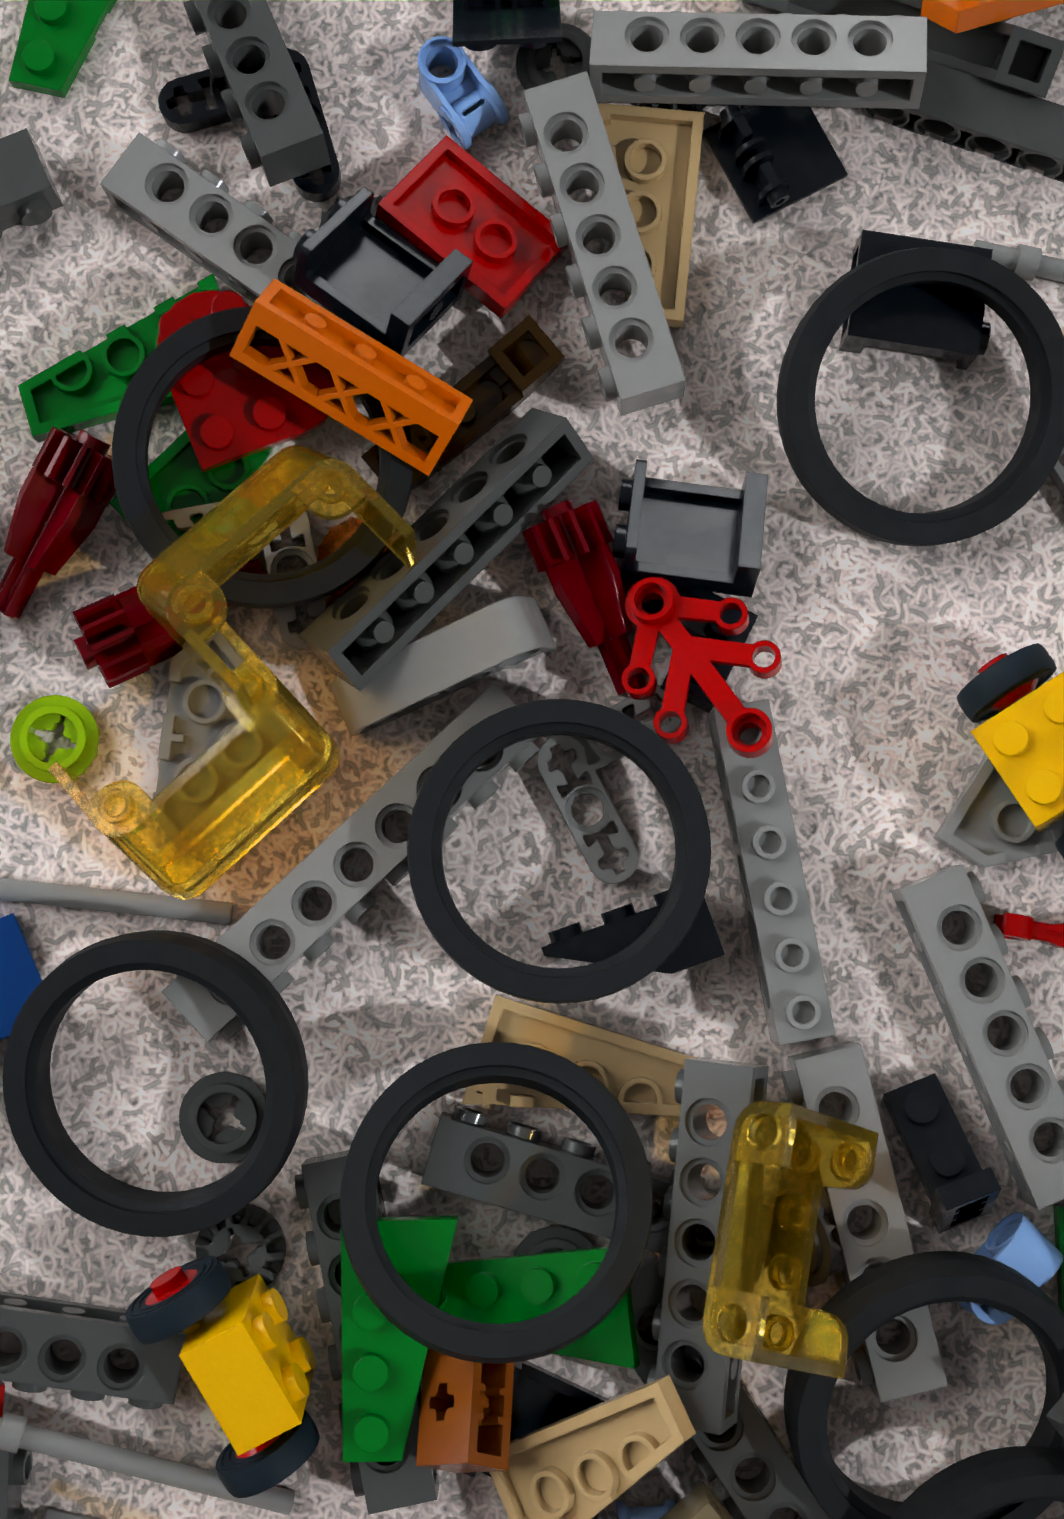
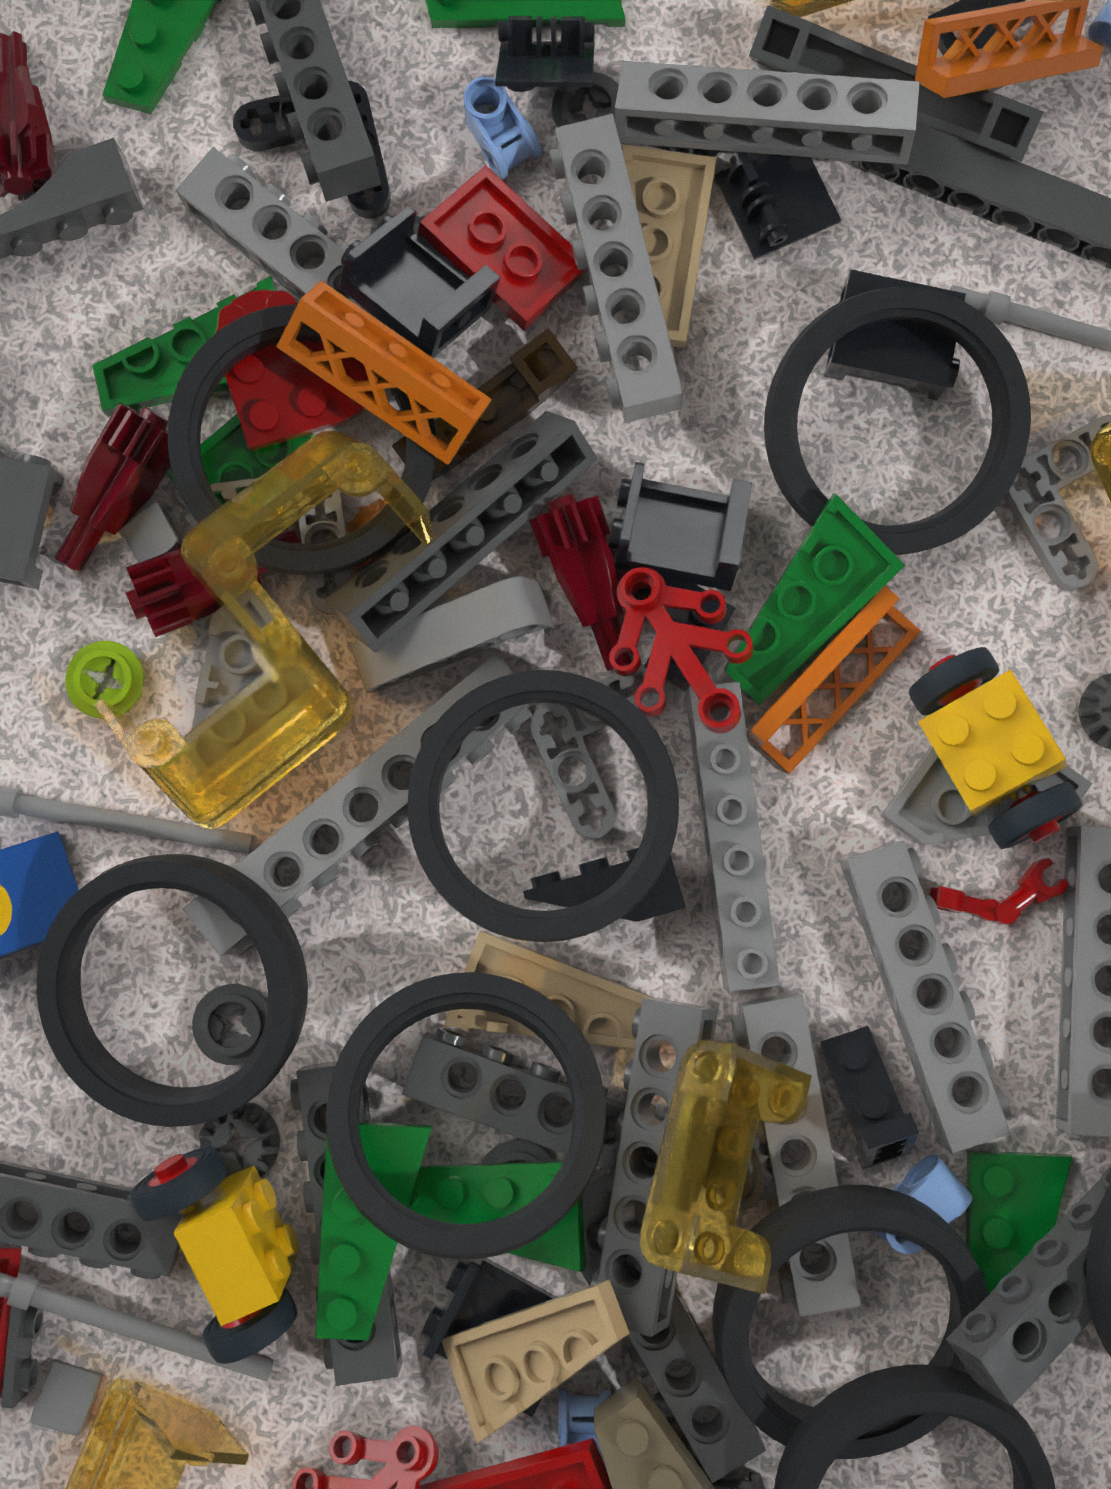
camera: 10 degrees right, 0 degrees up
(97, 572) = (152, 533): none -> light grey slope
(464, 1415) = (426, 1303): dark orange brick -> none
(849, 593) = (819, 591): none -> green wing
(857, 677) = (821, 667): none -> orange fence

